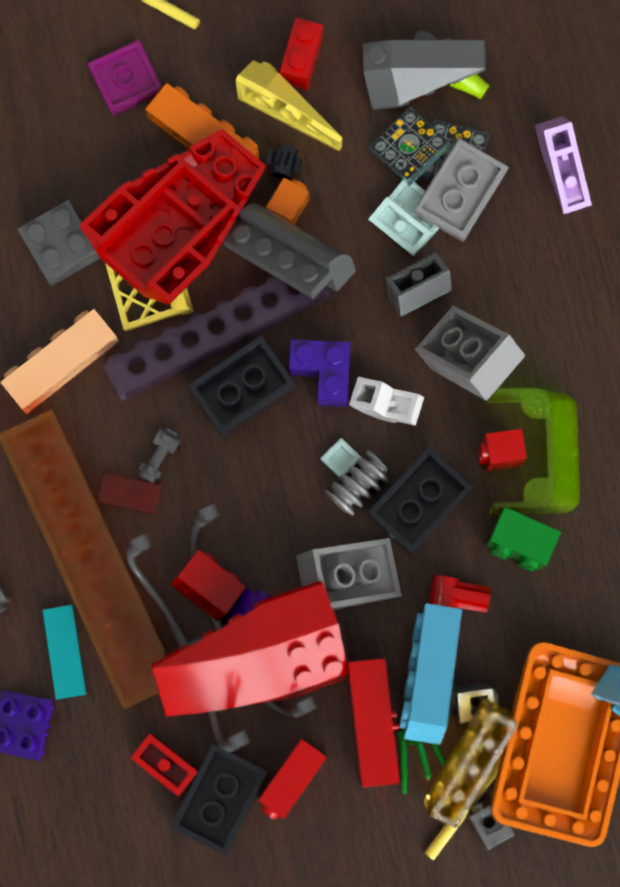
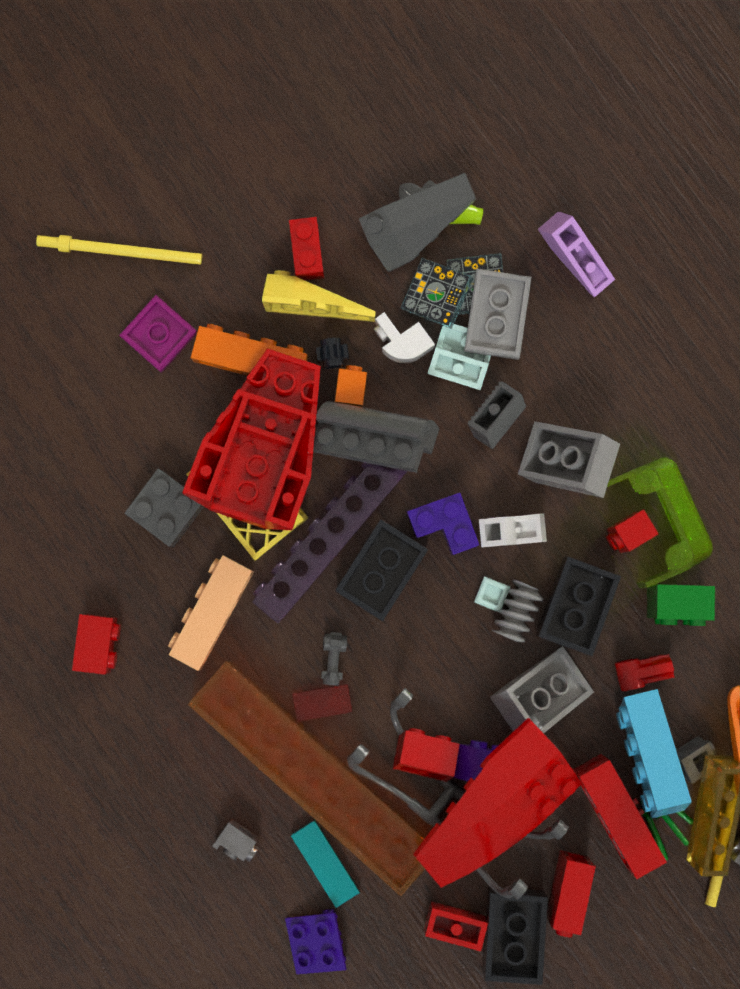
camera: 25 degrees left, 5 degrees up
(358, 185) = (405, 347): none -> white brick

